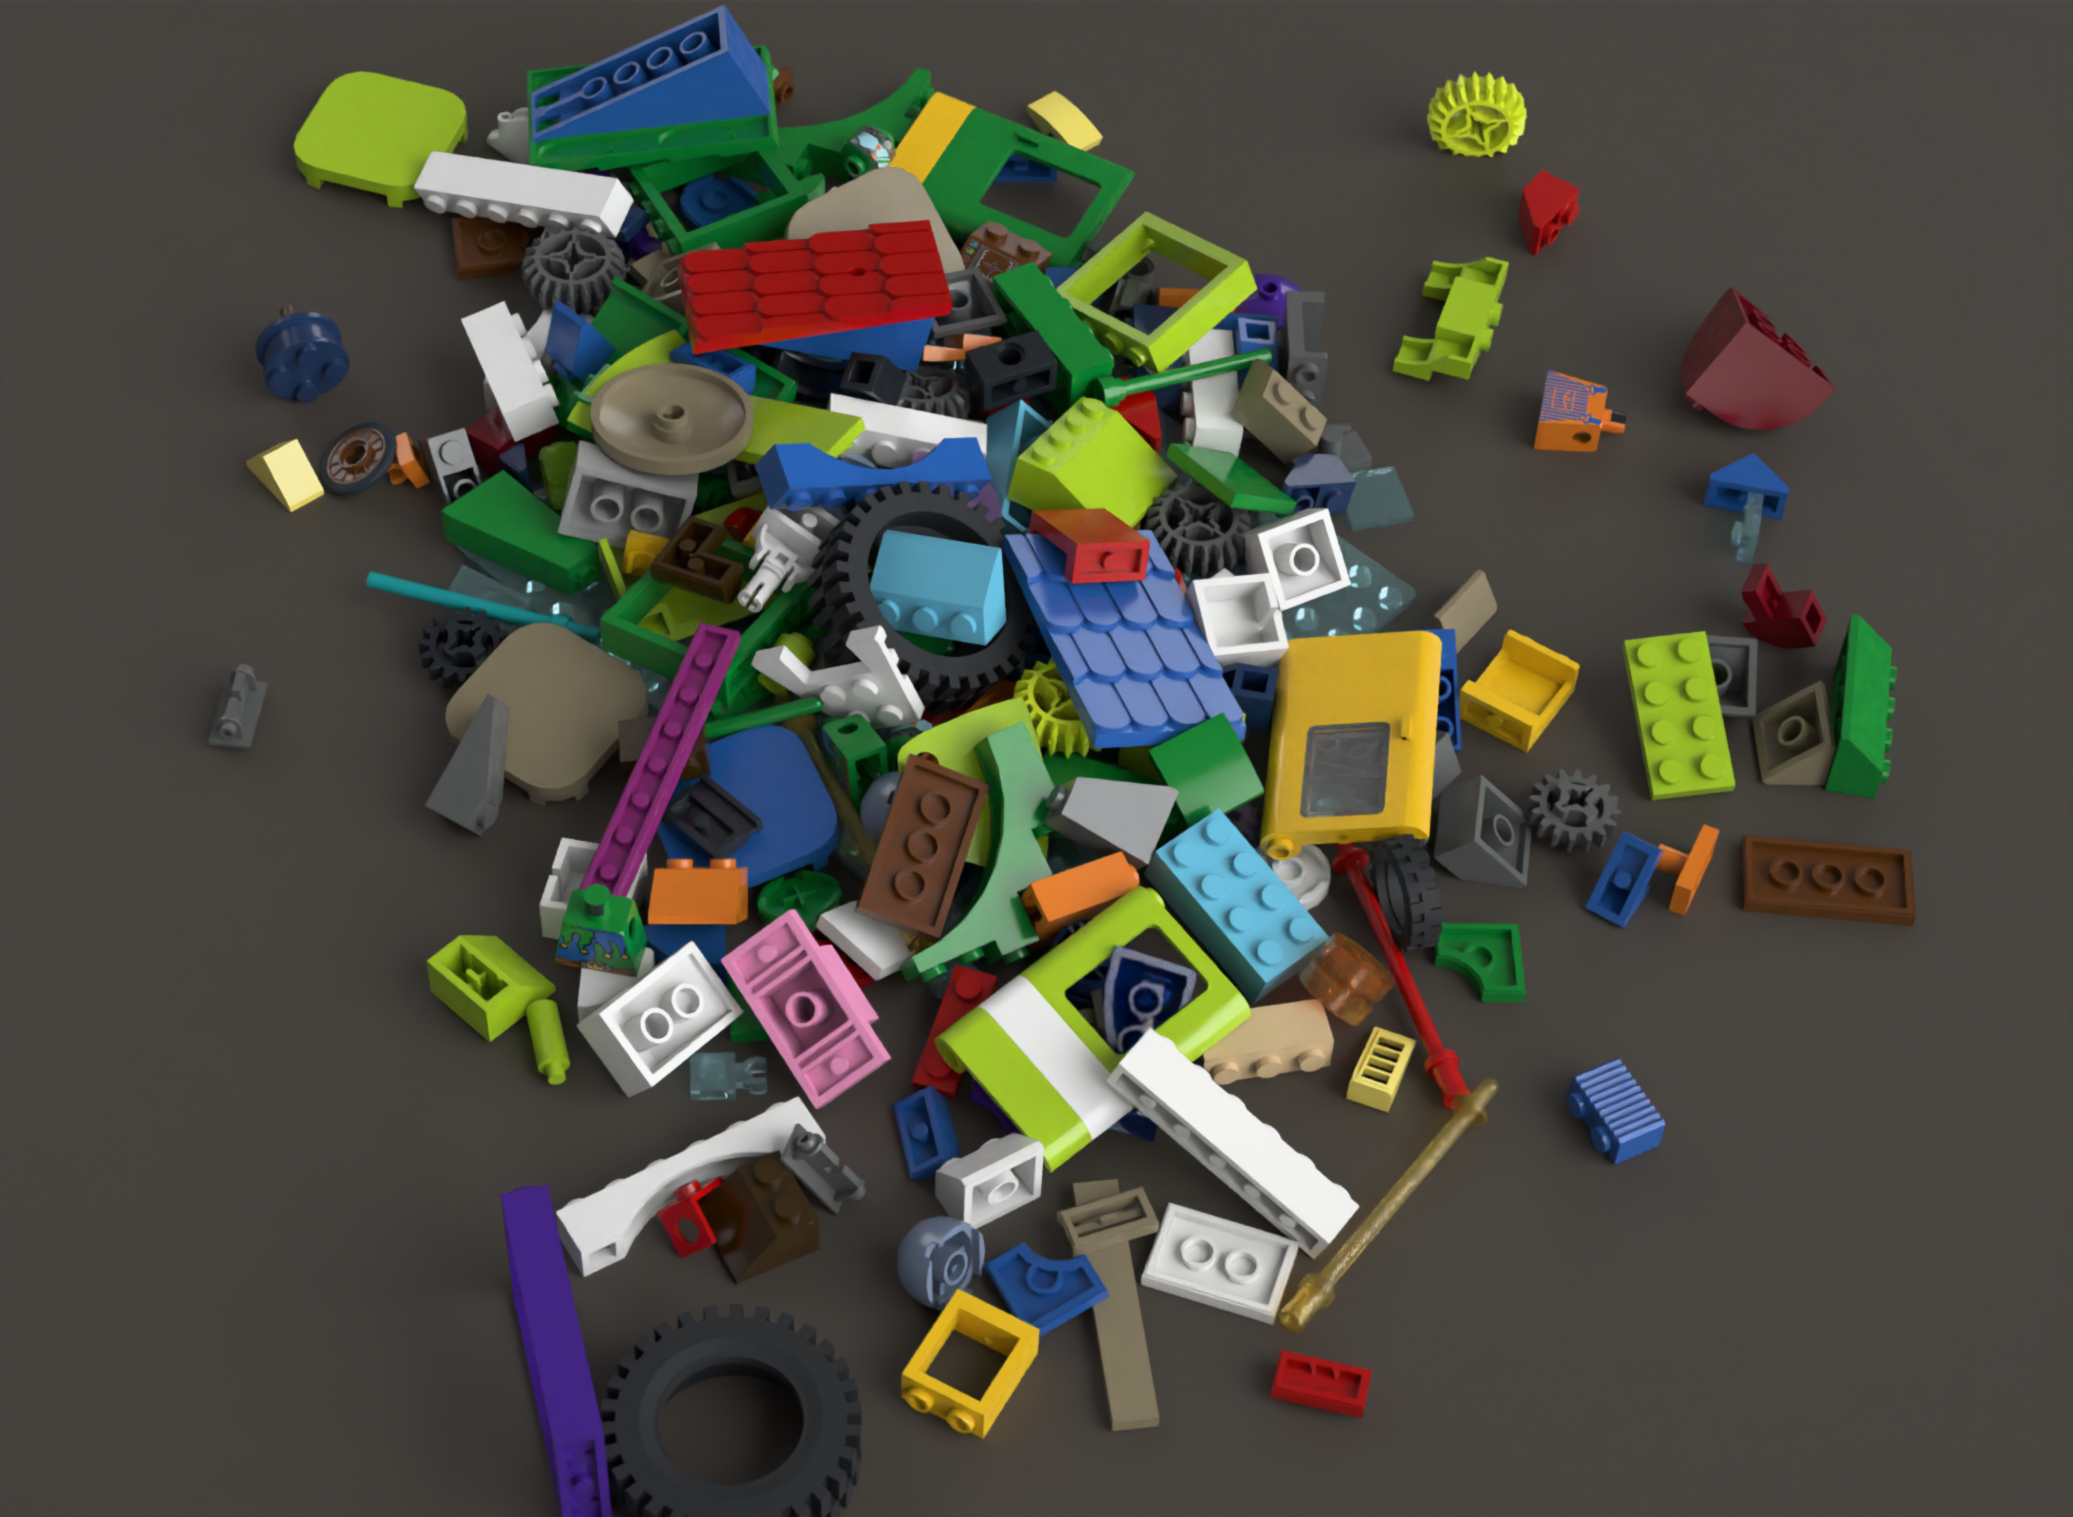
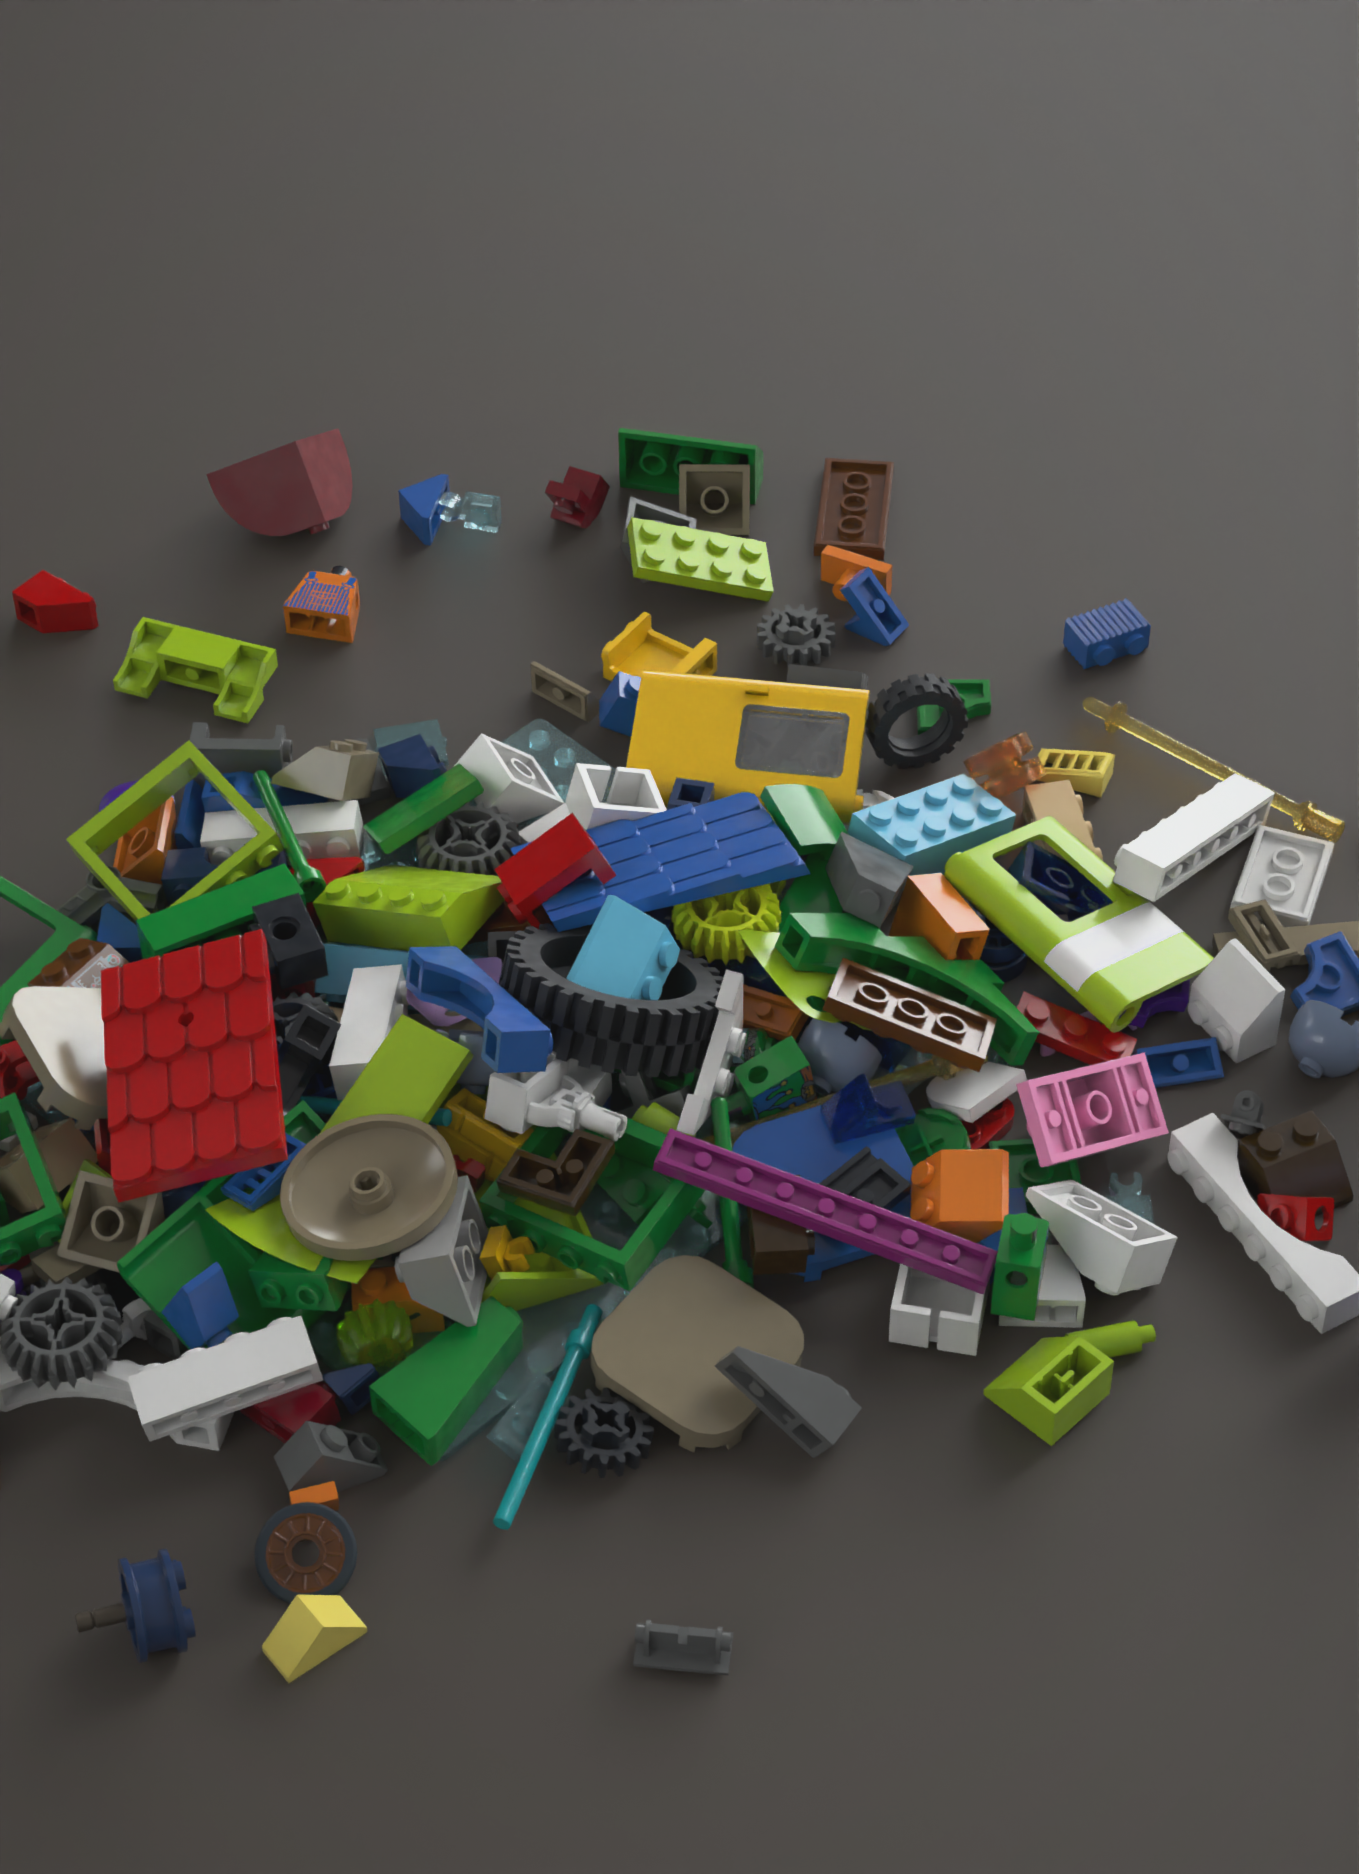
camera: 85 degrees left, 5 degrees down
(815, 829) = (865, 1110): none -> clear blue slope
(1441, 1062) = (1066, 732): red bar -> none

